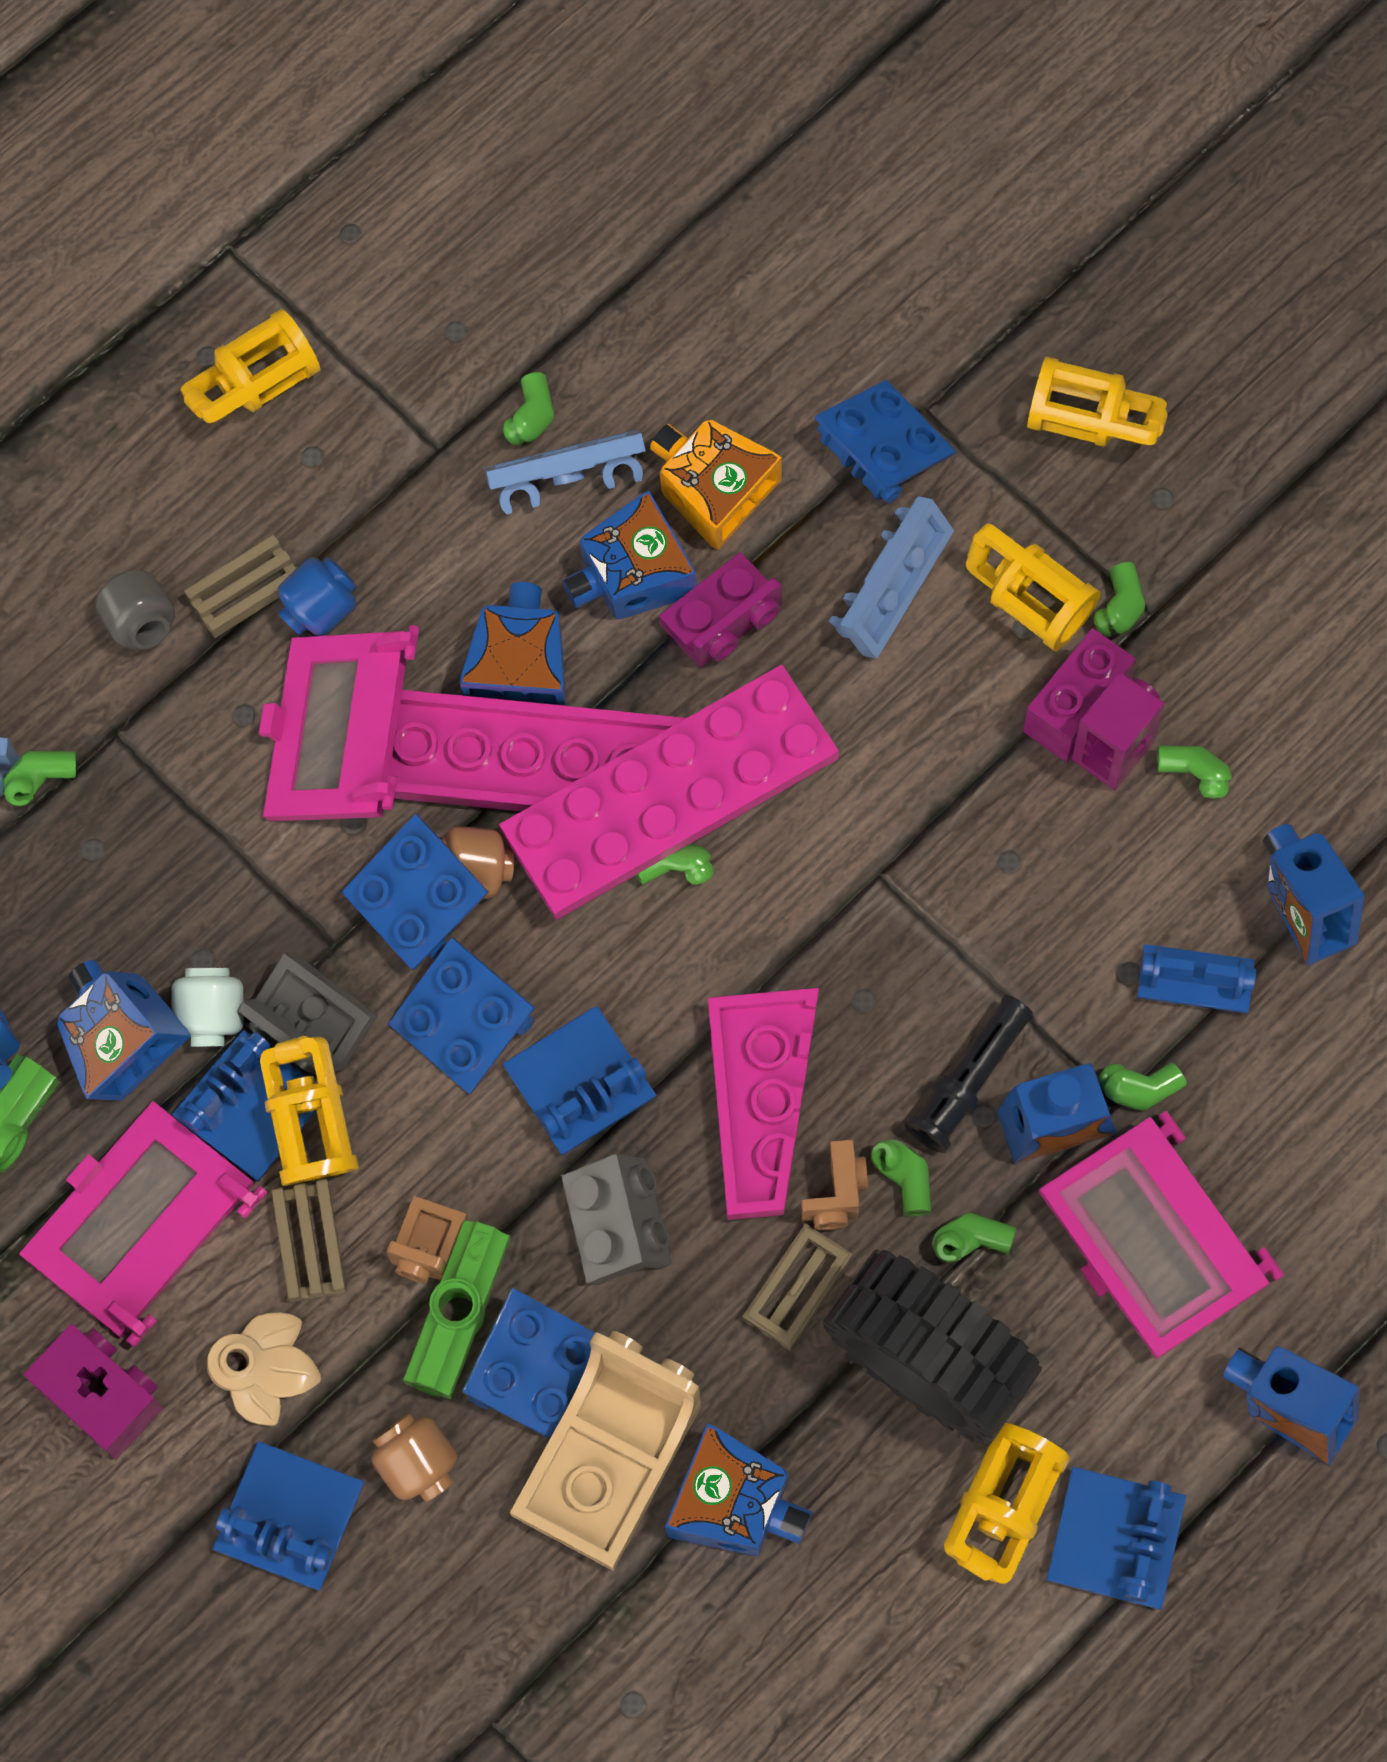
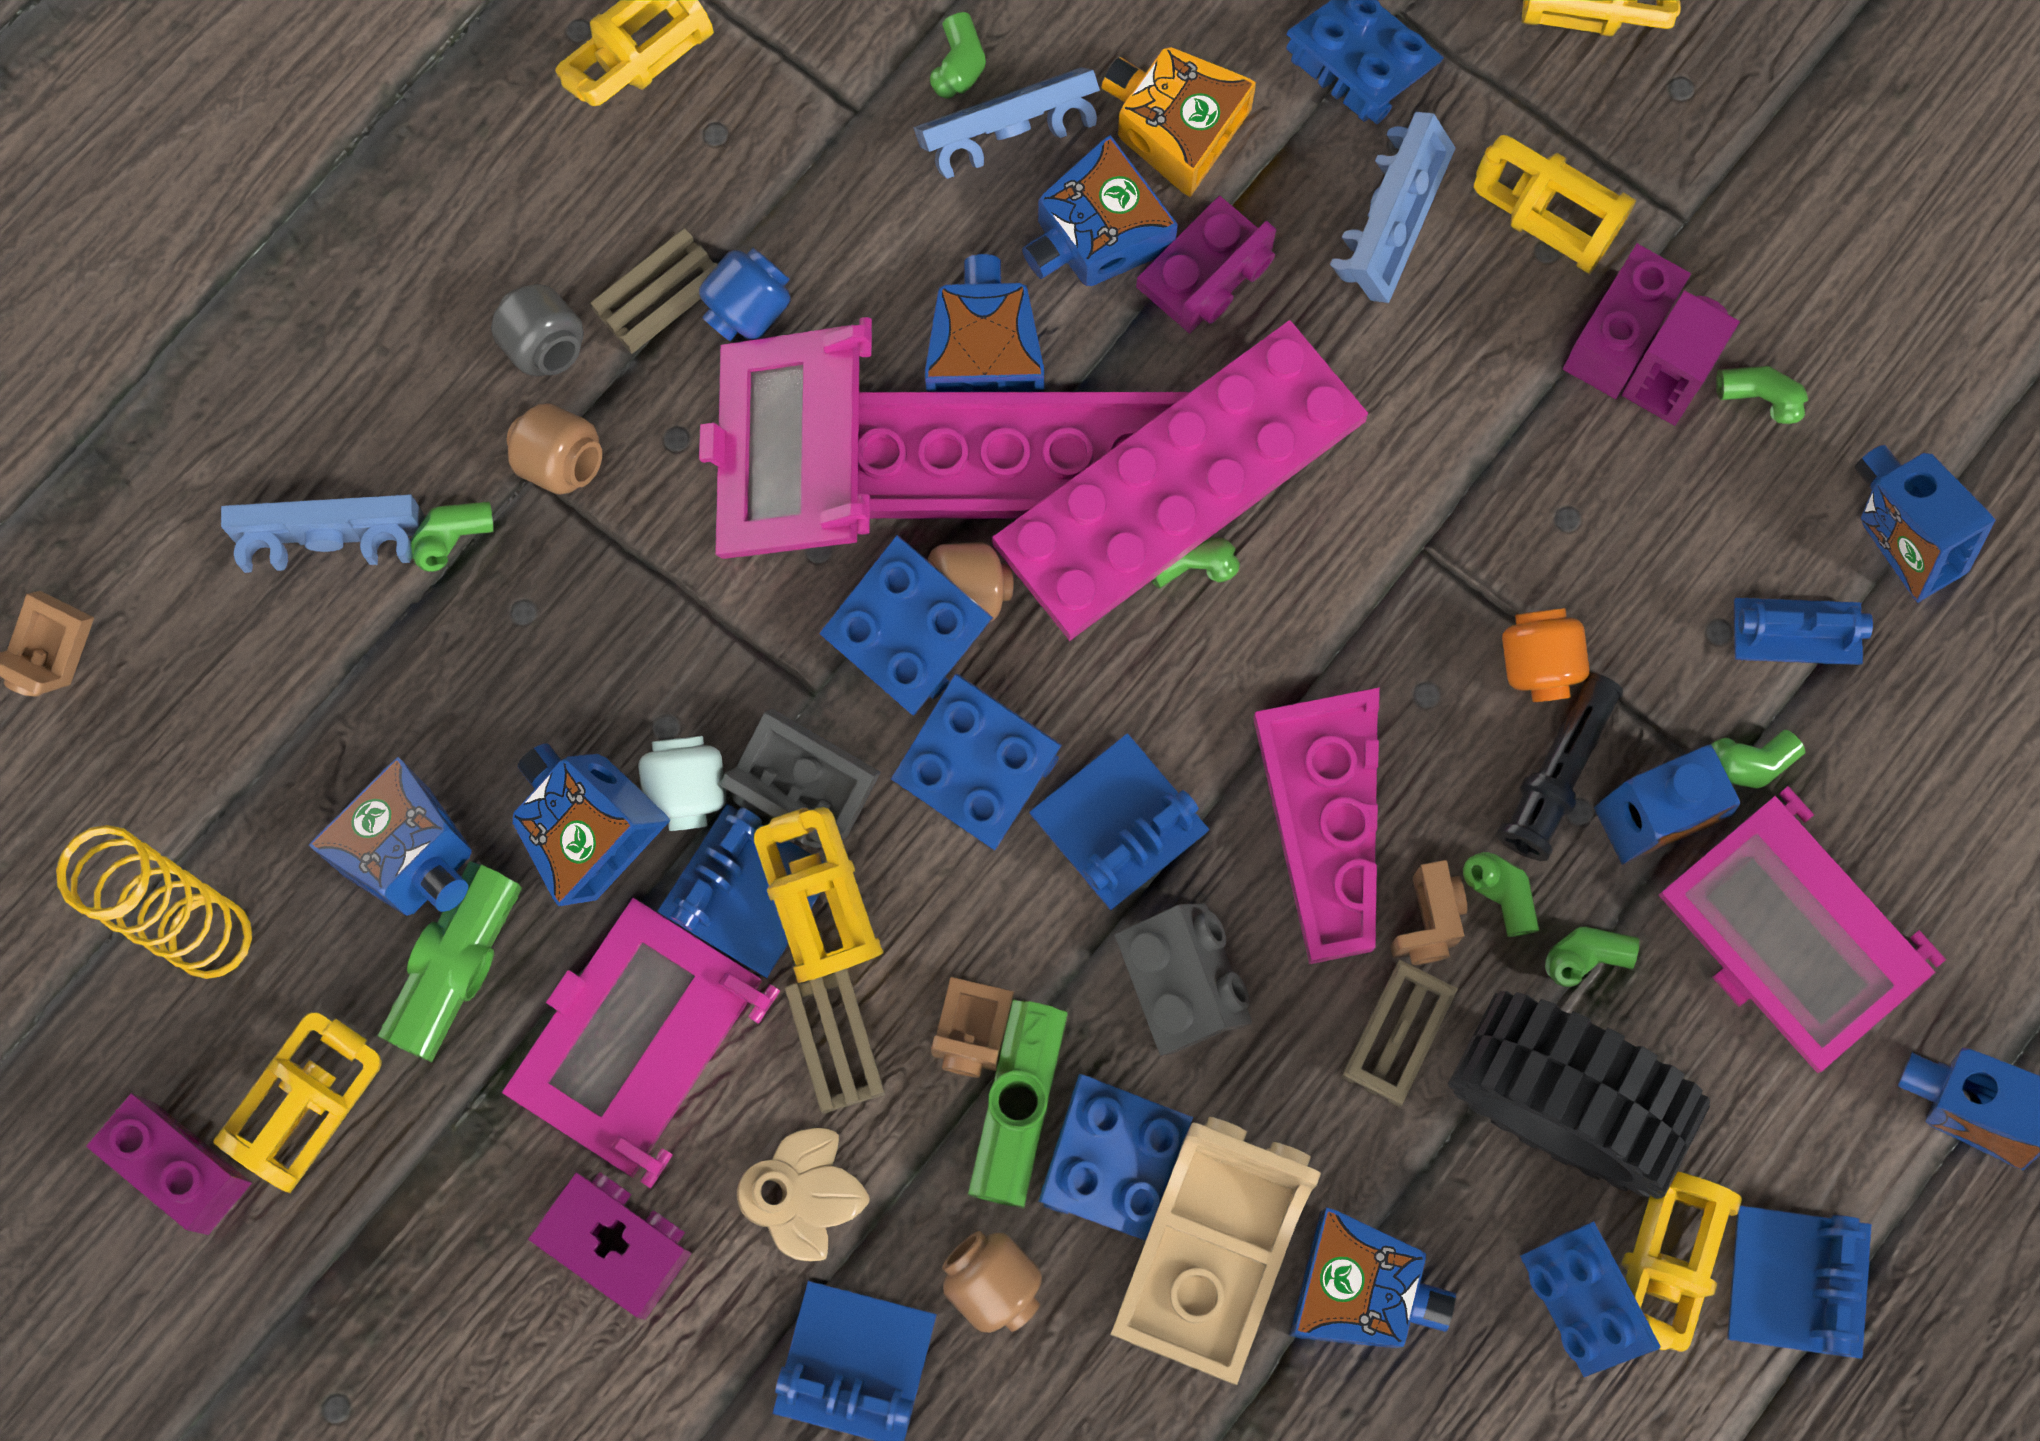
camera: 10 degrees left, 5 degrees up
(135, 712) = (554, 449): none -> medium nougat head
(923, 1529) = (1589, 1300): none -> blue hinge
(968, 974) = (1545, 654): none -> orange head
(1125, 606) = (1661, 212): bright green arm -> none

